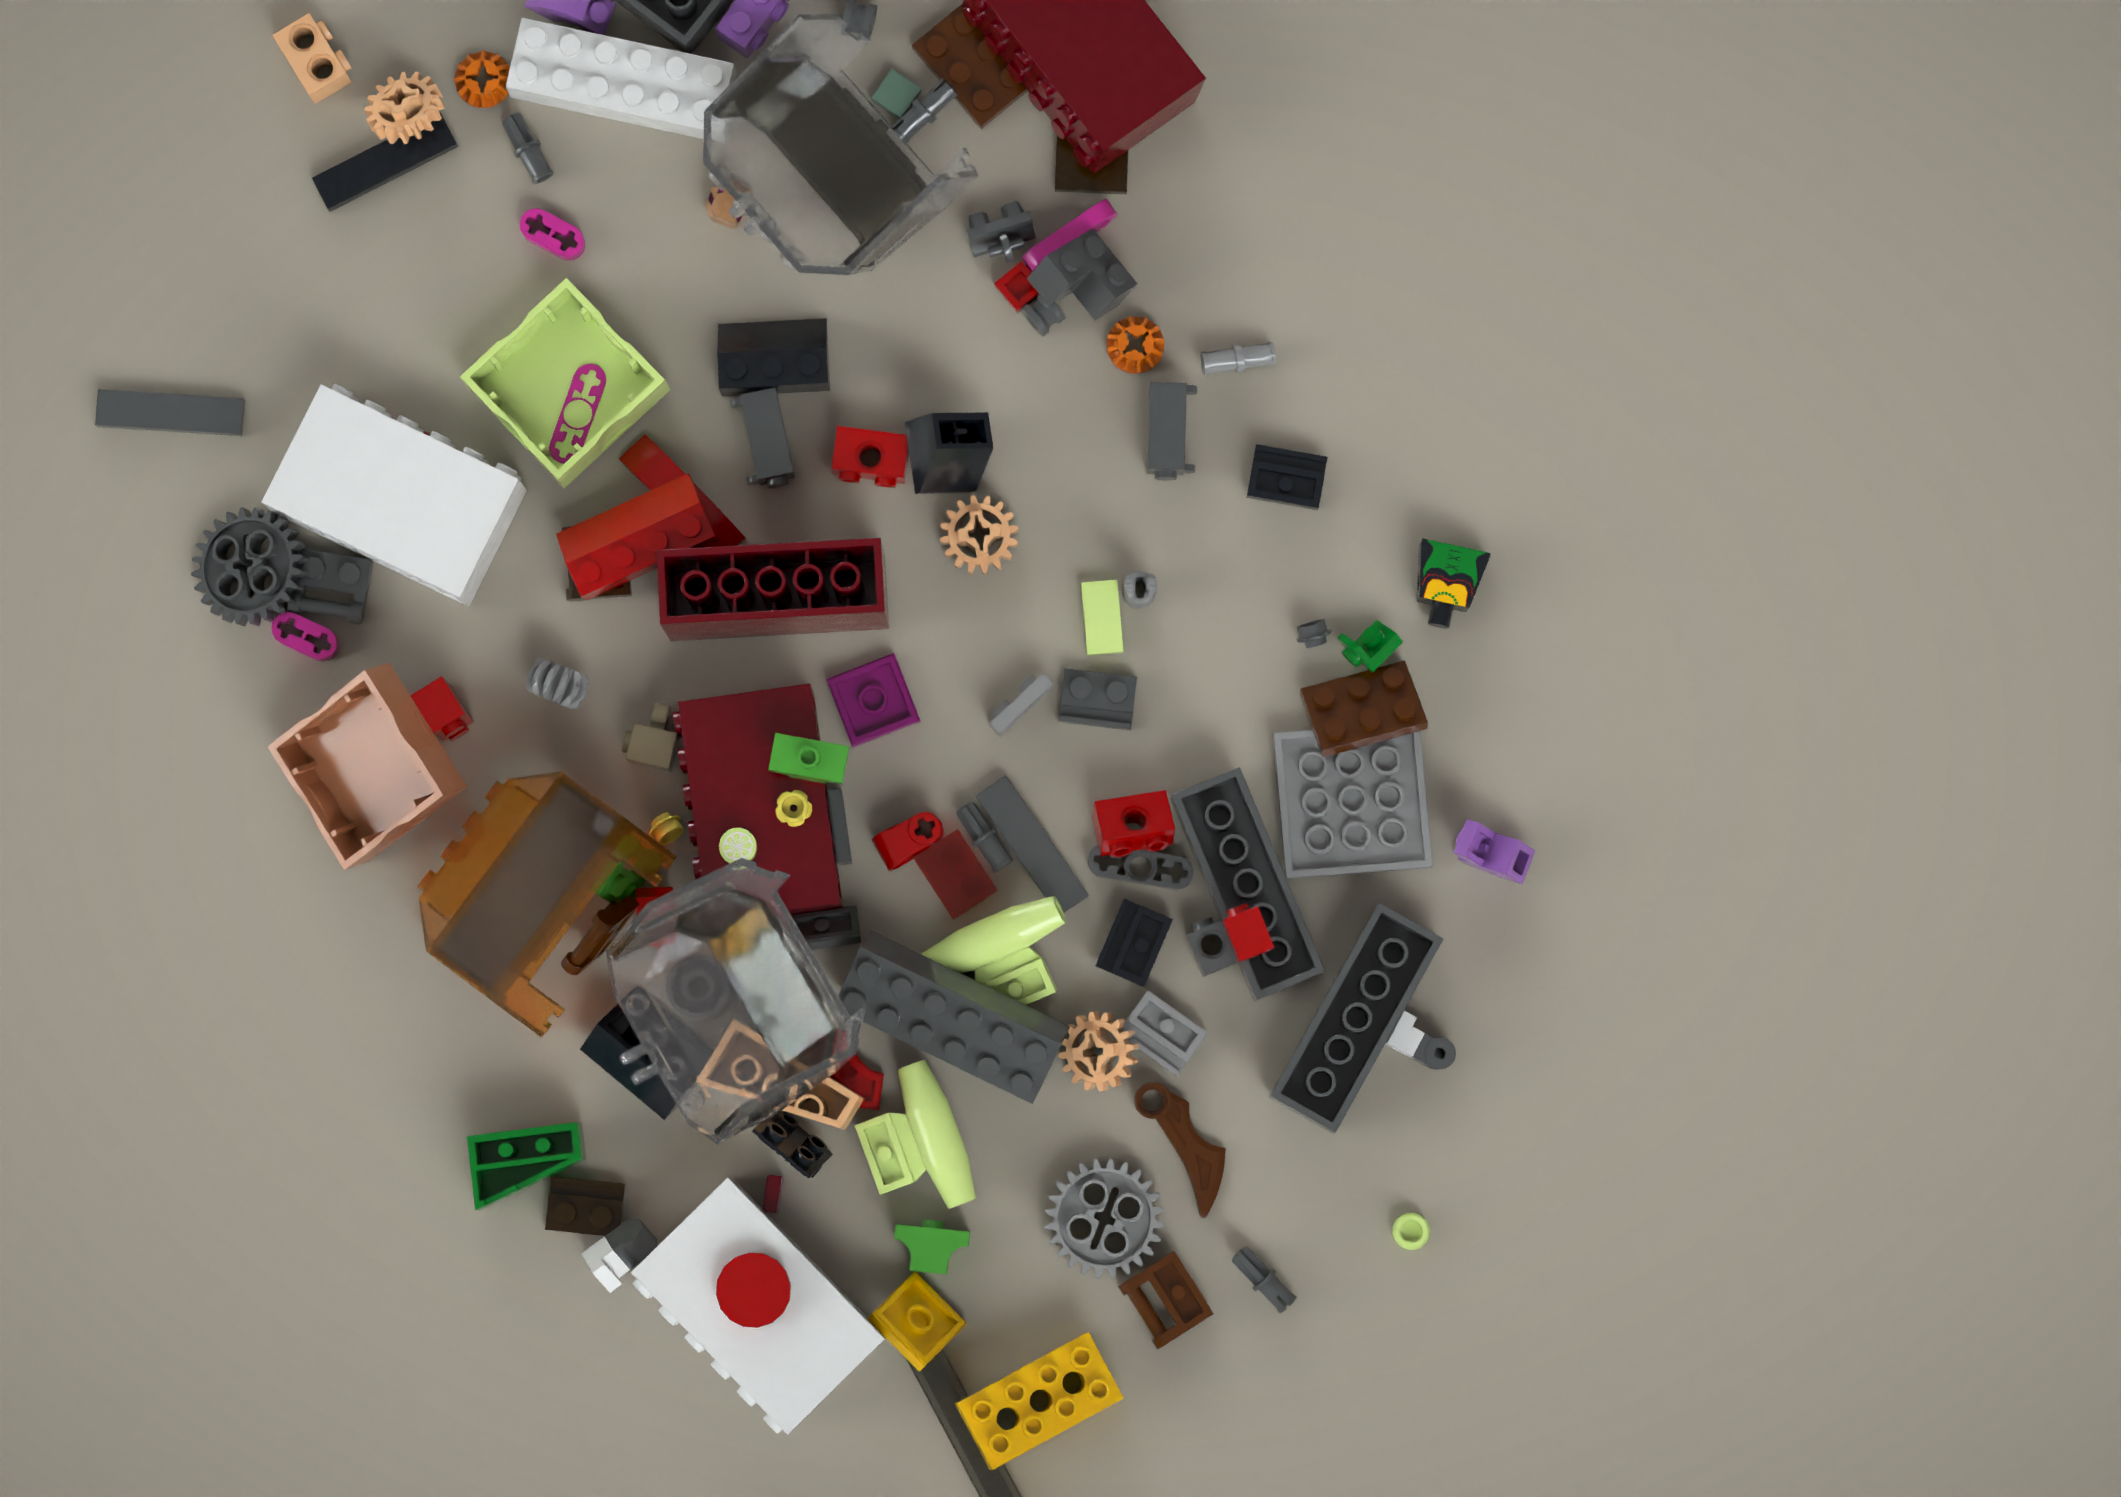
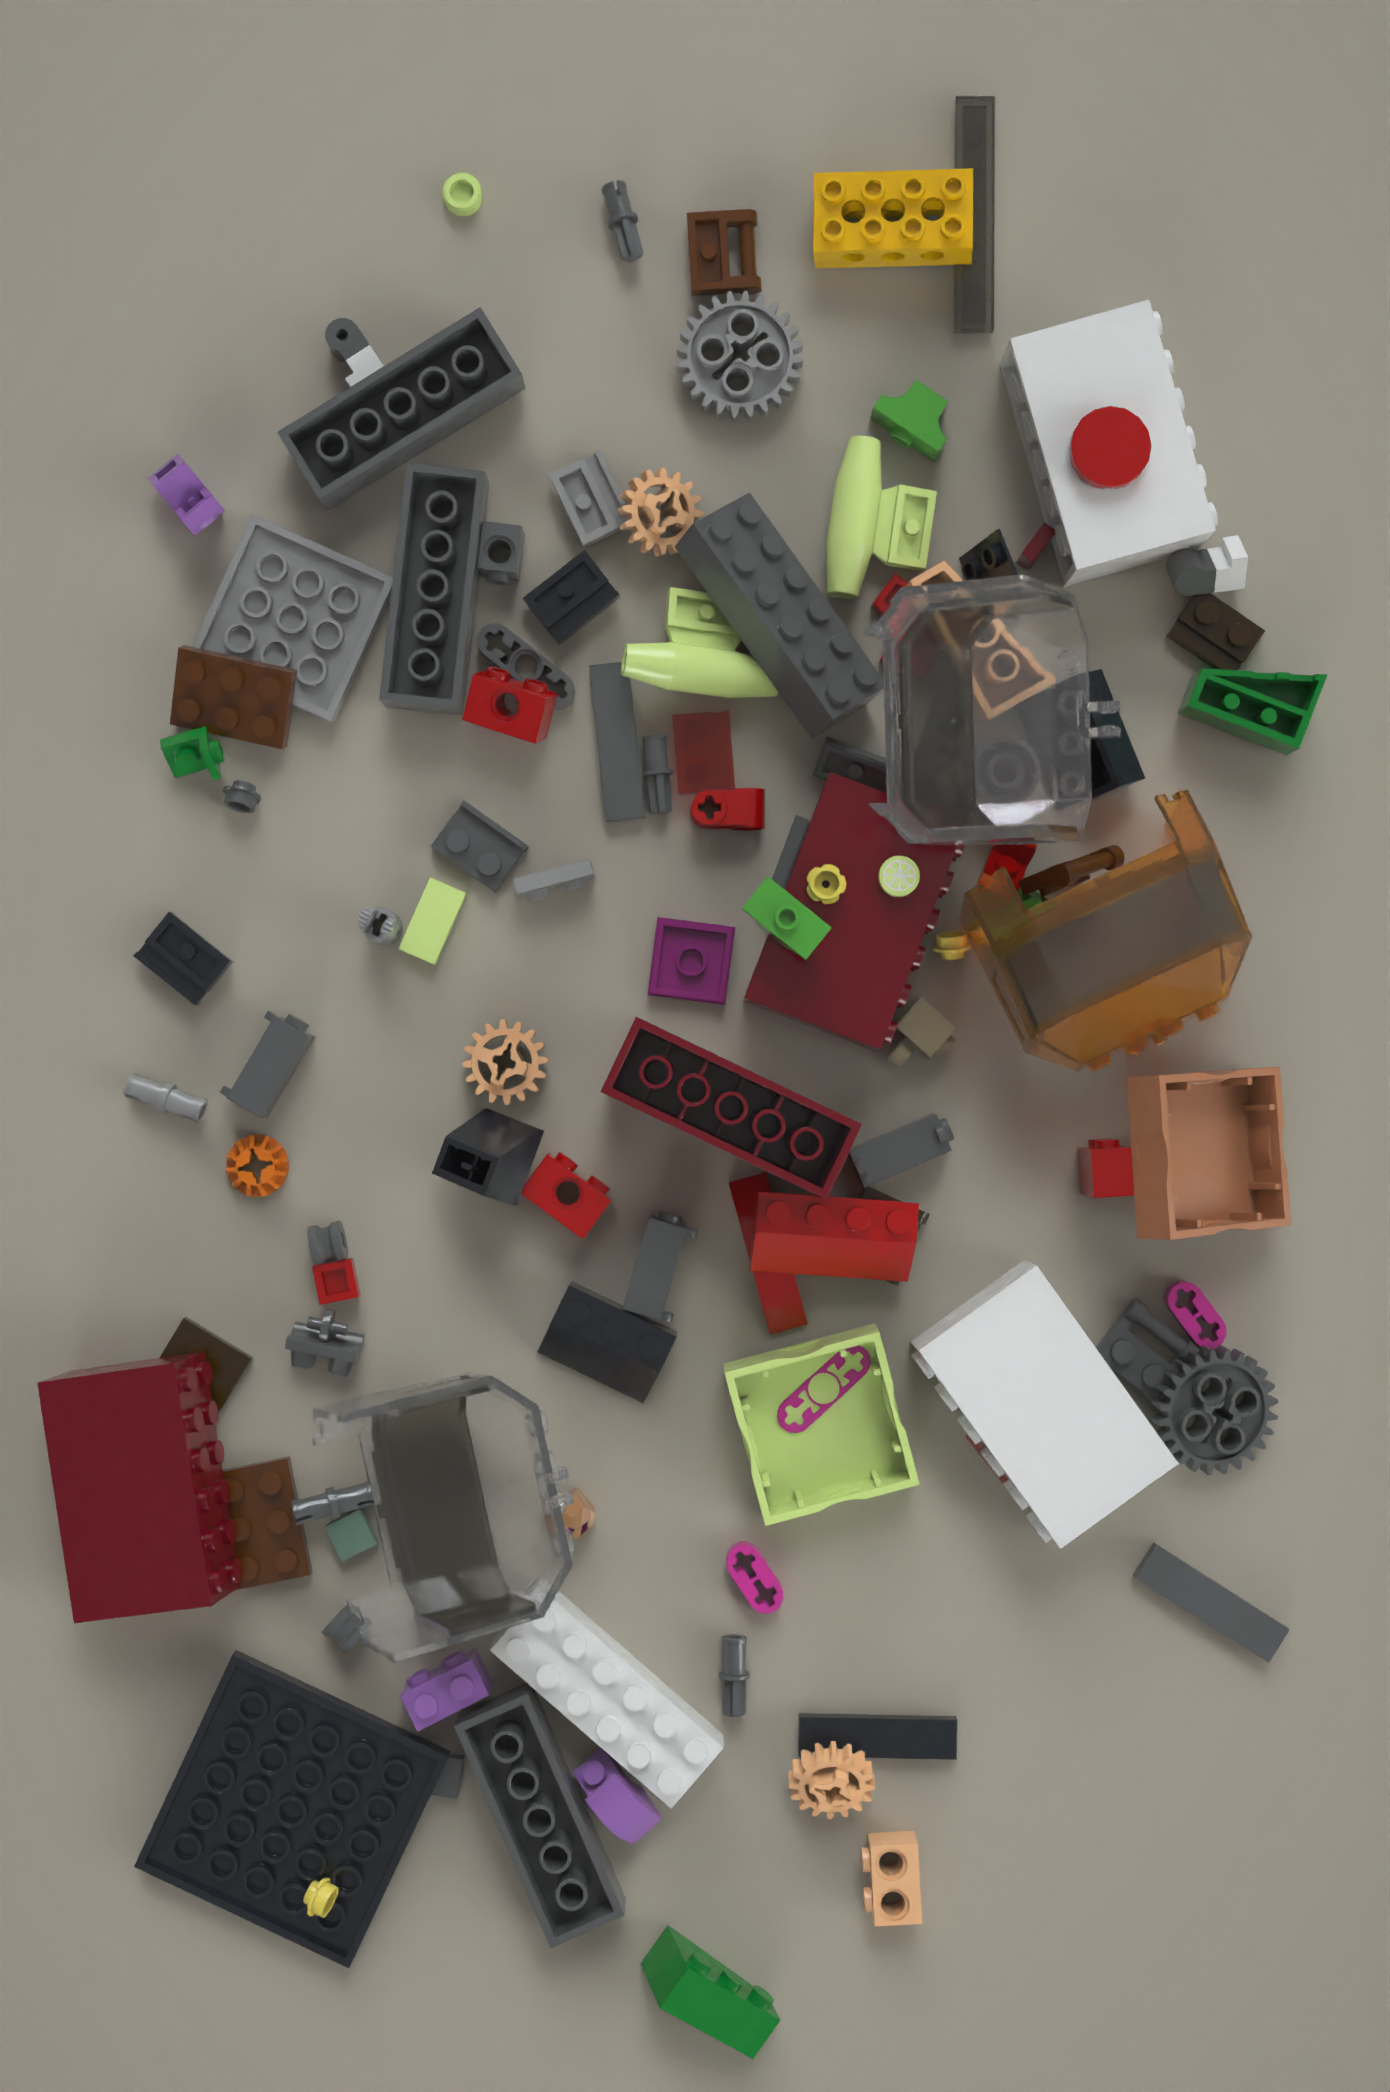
camera: 150 degrees left, 5 degrees up
(470, 89) = (757, 1762): orange gear -> none
(557, 683) = (982, 1136): light grey gear -> none
(618, 638) = (901, 1149): none -> dark grey brick
(917, 1321) = (966, 353): yellow plate -> none
(1087, 271) = (261, 1258): dark grey brick -> none
(1095, 217) = (260, 1304): dark pink beam -> none
(1201, 1159) = (620, 367): reddish brown piece -> none
(1247, 932) = (458, 532): red brick -> none
(1448, 578) = (84, 777): torso -> none

